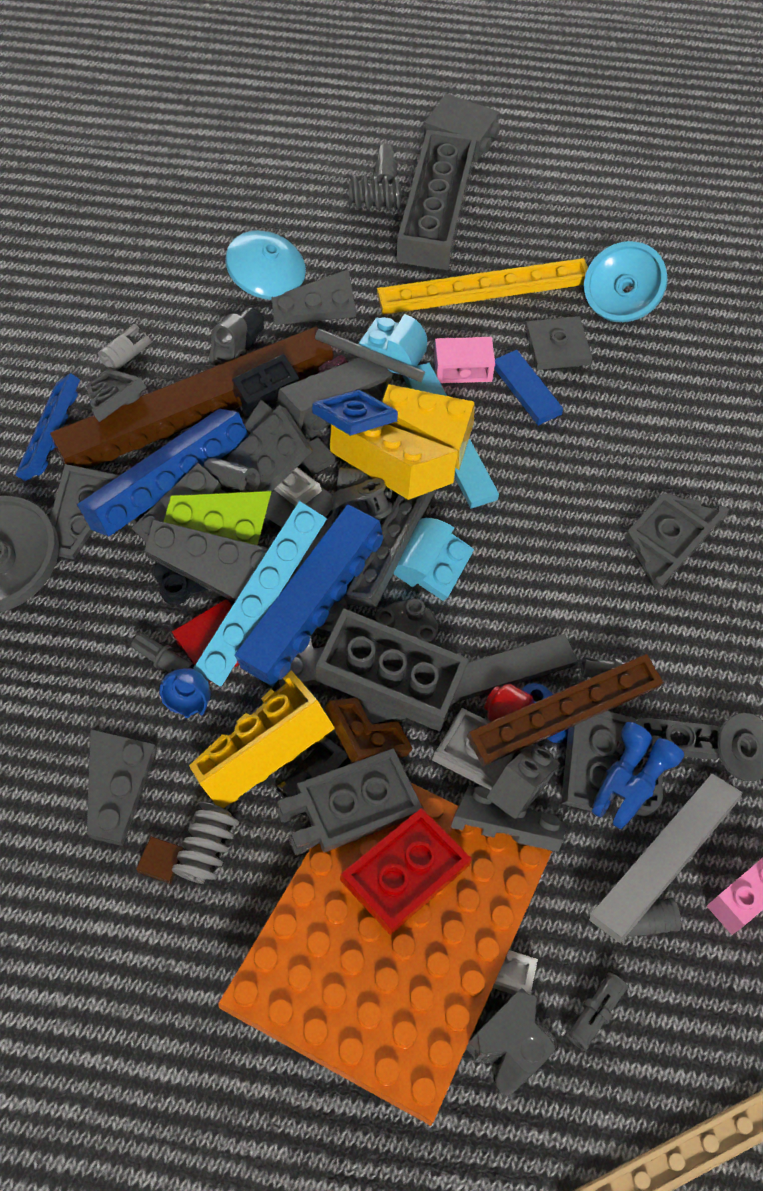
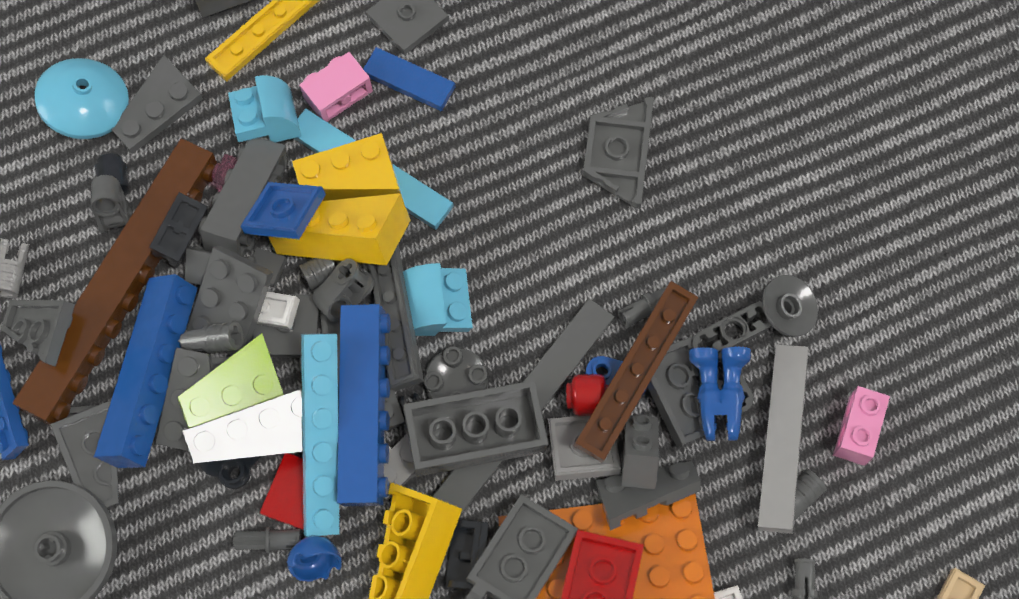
camera: 30 degrees left, 10 degrees up
(360, 736) = (487, 501): reddish brown plate -> none
(370, 355) = (252, 140): dark grey bar -> none

